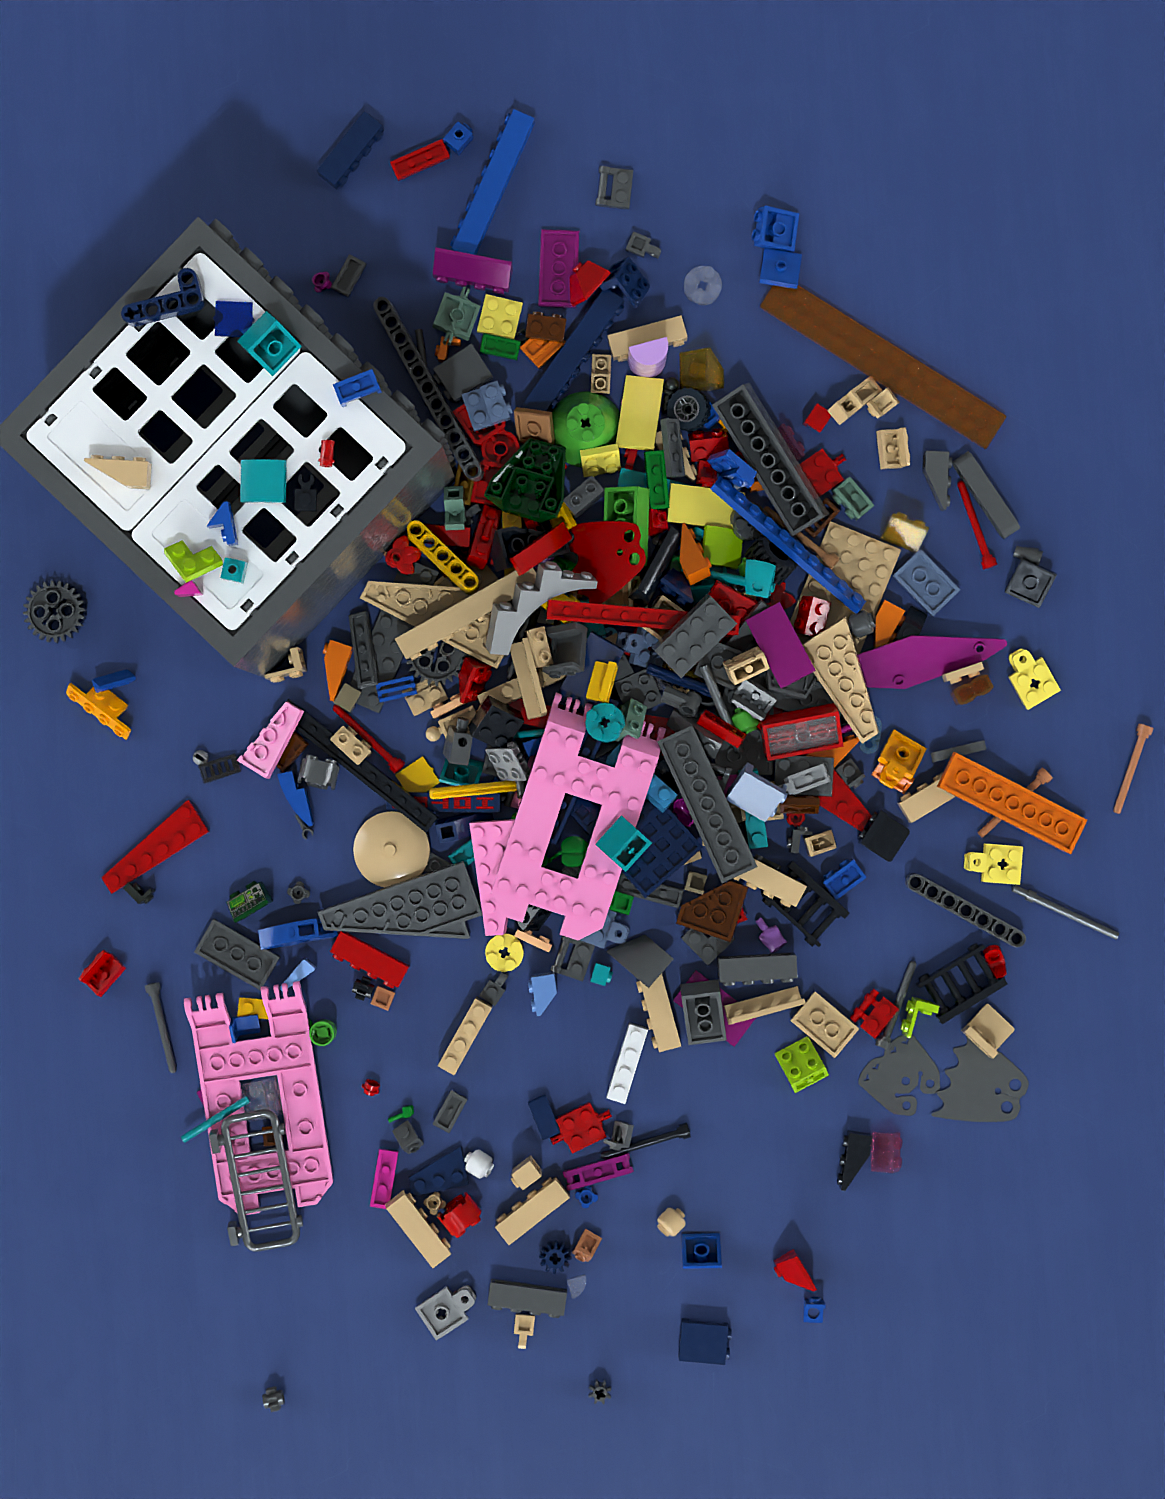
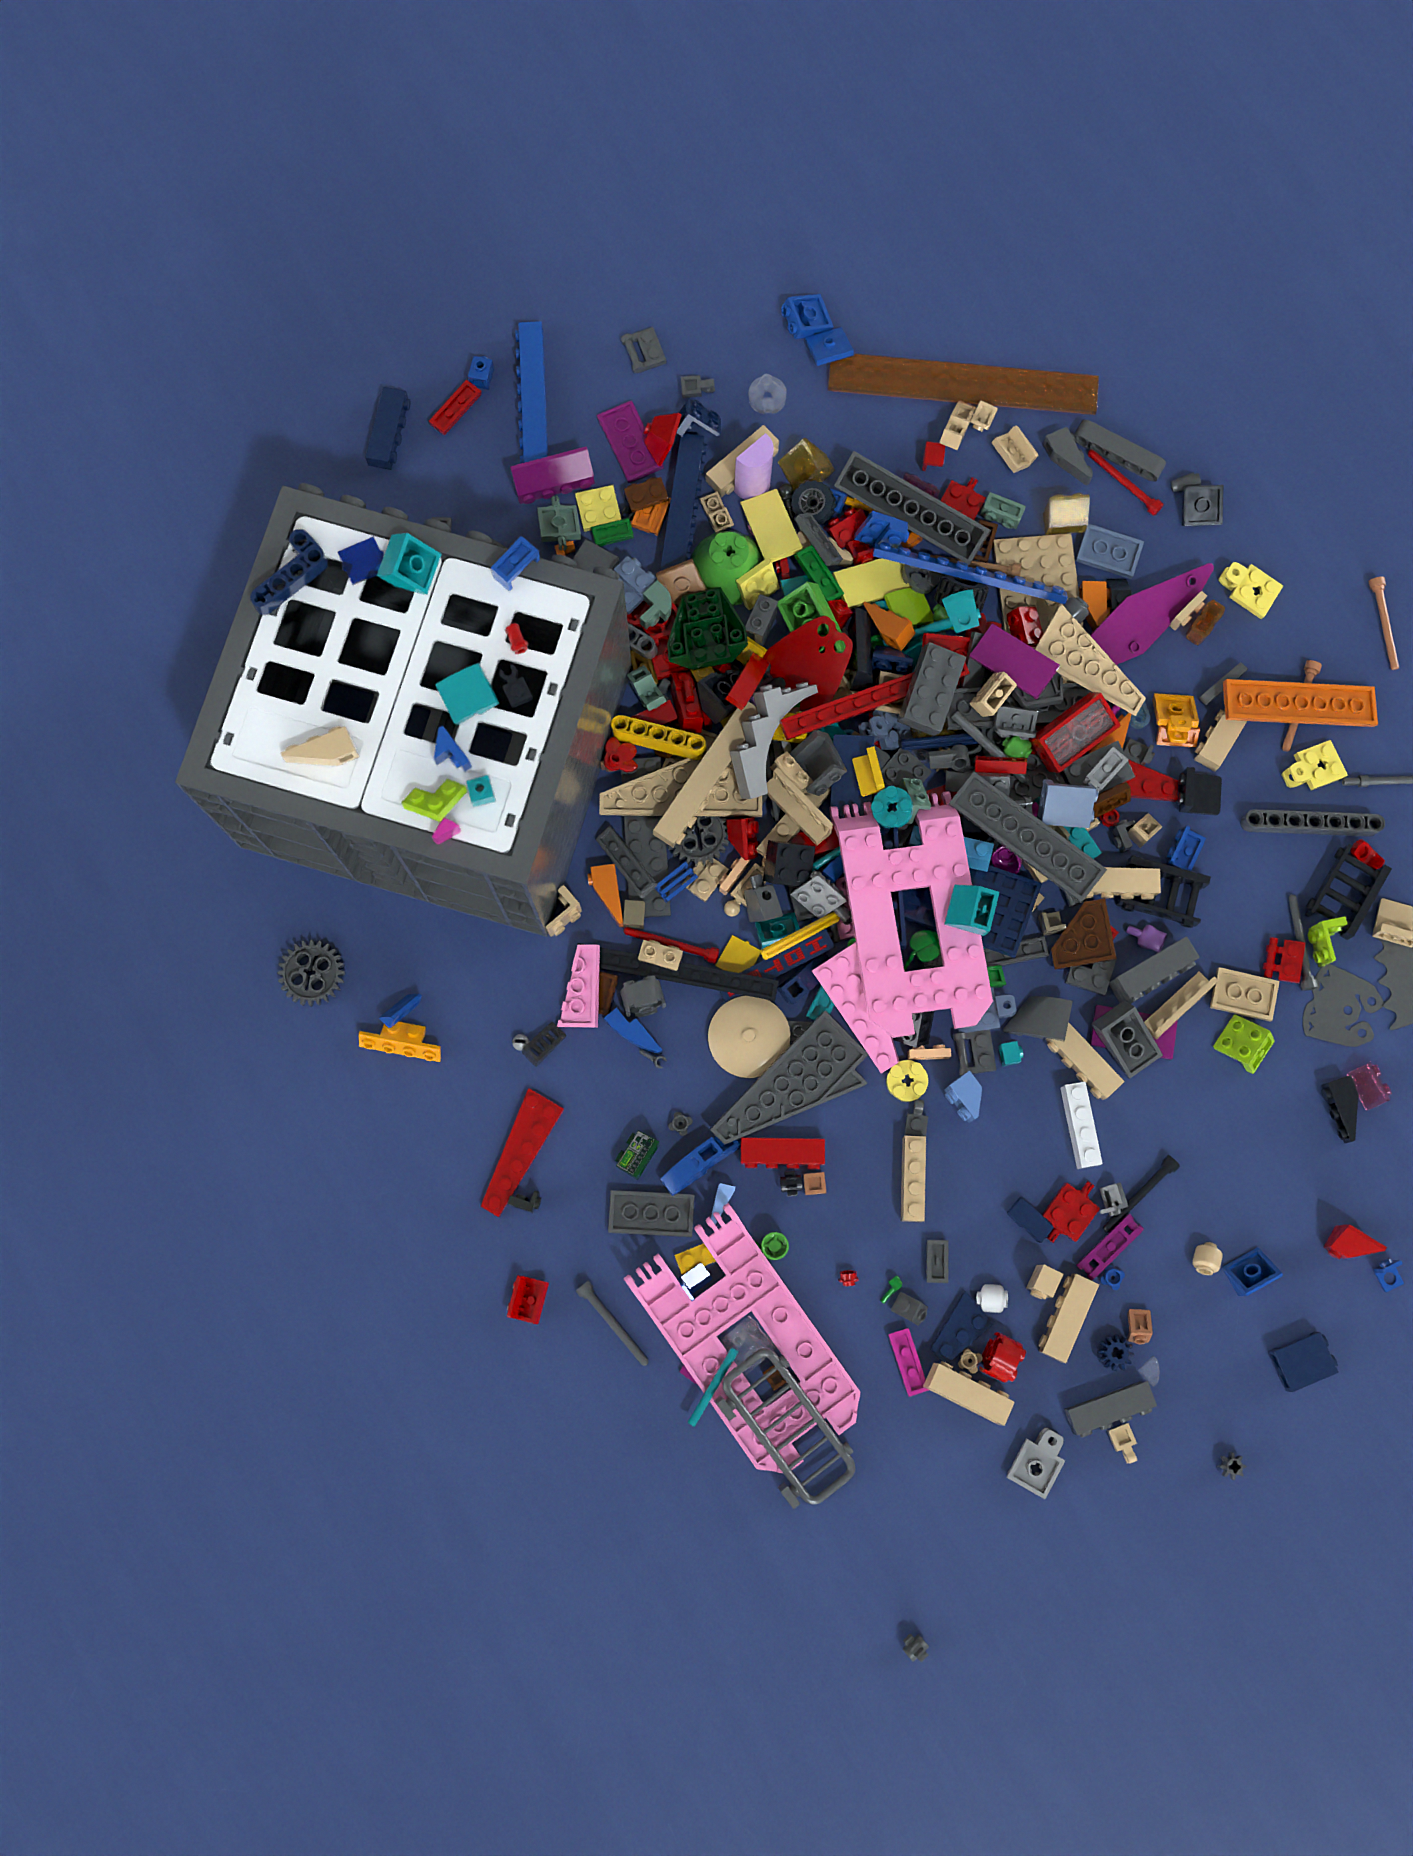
camera: 35 degrees left, 10 degrees down
(505, 437) = (660, 605): none -> sand green brick

